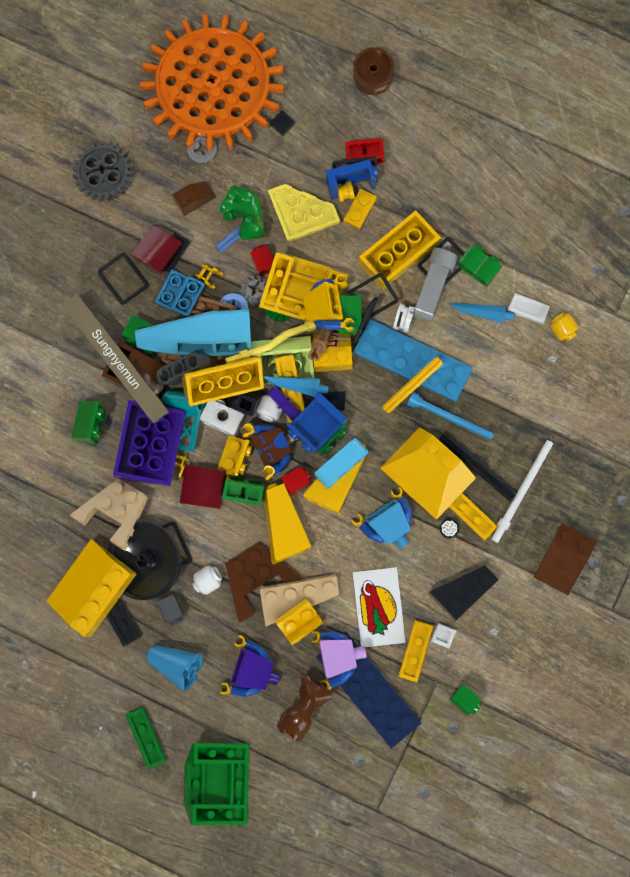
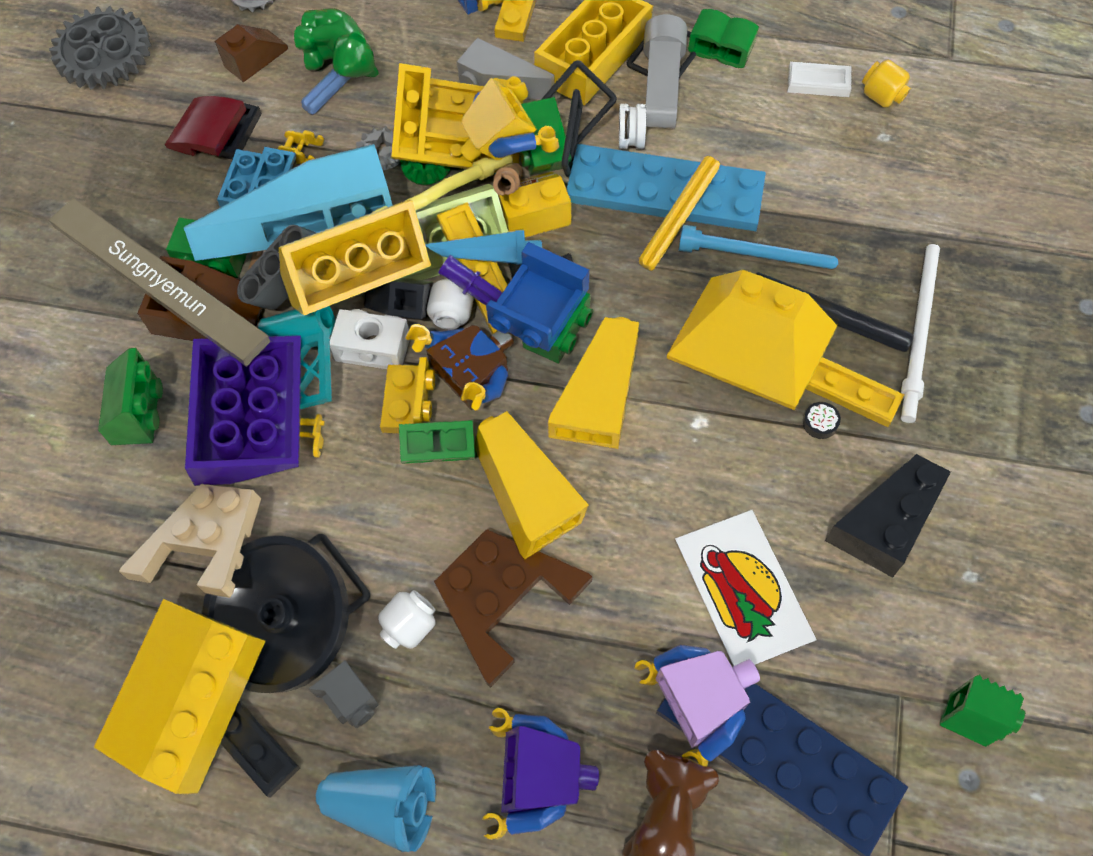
camera: 20 degrees left, 15 degrees down
(136, 271) = (118, 183): black piece -> none
(202, 486) = (360, 458): dark red slope -> none
(262, 259) = (379, 102): red brick -> none
(282, 597) = (577, 611): tan wing -> none
(296, 480) = (529, 404): red brick -> none
(299, 621) = (604, 650): yellow bracket -> none
(301, 212) = (426, 33): light yellow plate -> none
(337, 256) = (487, 61): none -> light grey slope
(341, 463) = (600, 348): medium azure beam -> none
(389, 522) = (713, 432): dark azure torso -> none
(415, 651) = (842, 651): yellow tile -> none
(443, 635) = (883, 607): white tile -> none
(493, 313) = (765, 96): dark azure bar -> none
(564, 559) = (1043, 414): reddish brown slope -> none

